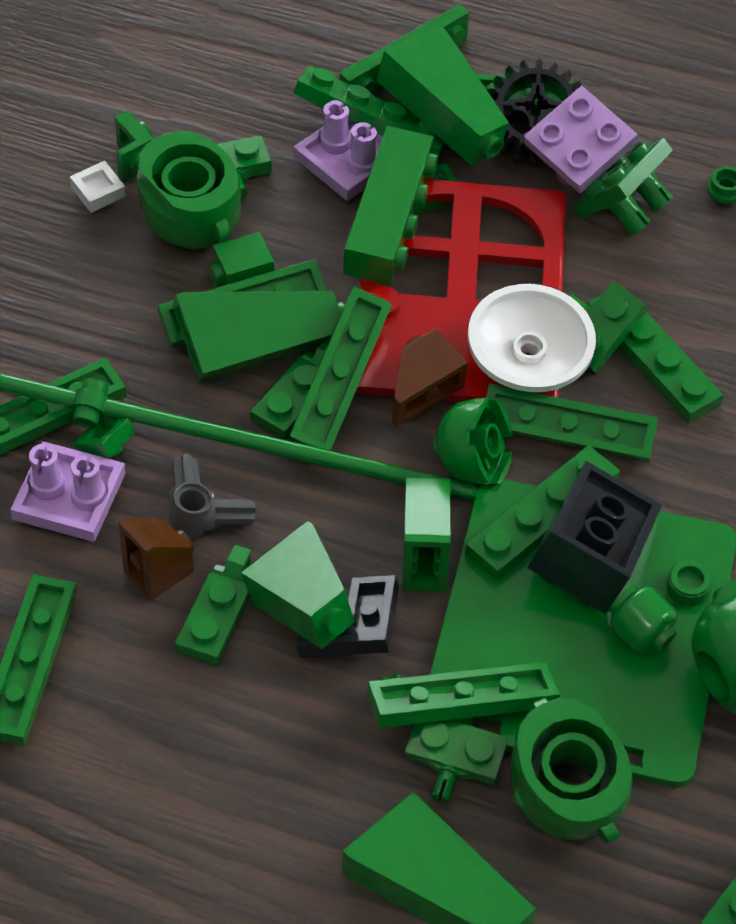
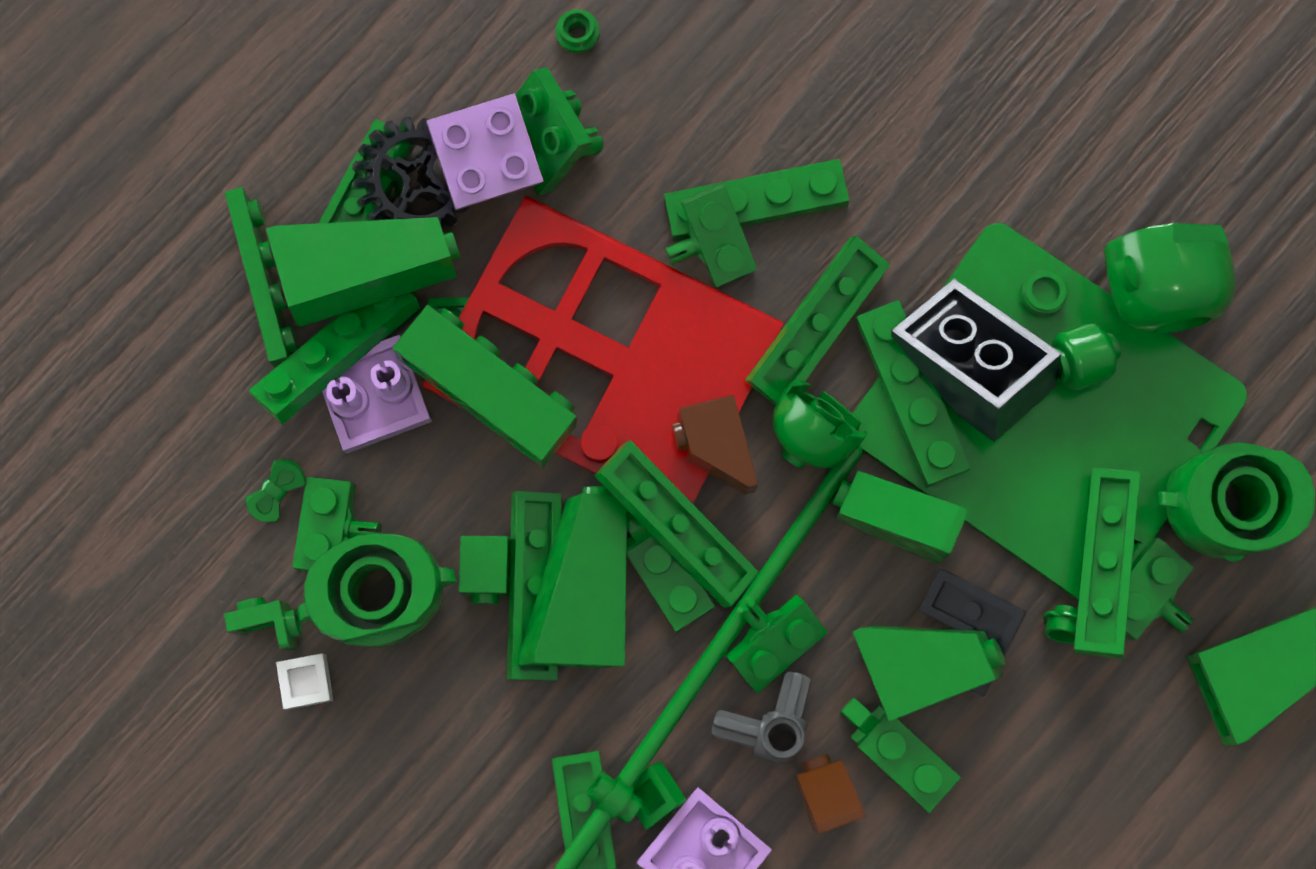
camera: 60 degrees left, 25 degrees up
(228, 118) = (265, 503): none -> green piece
(274, 479) = (774, 640): none -> green plate
(533, 322) = (729, 288): white dish -> none

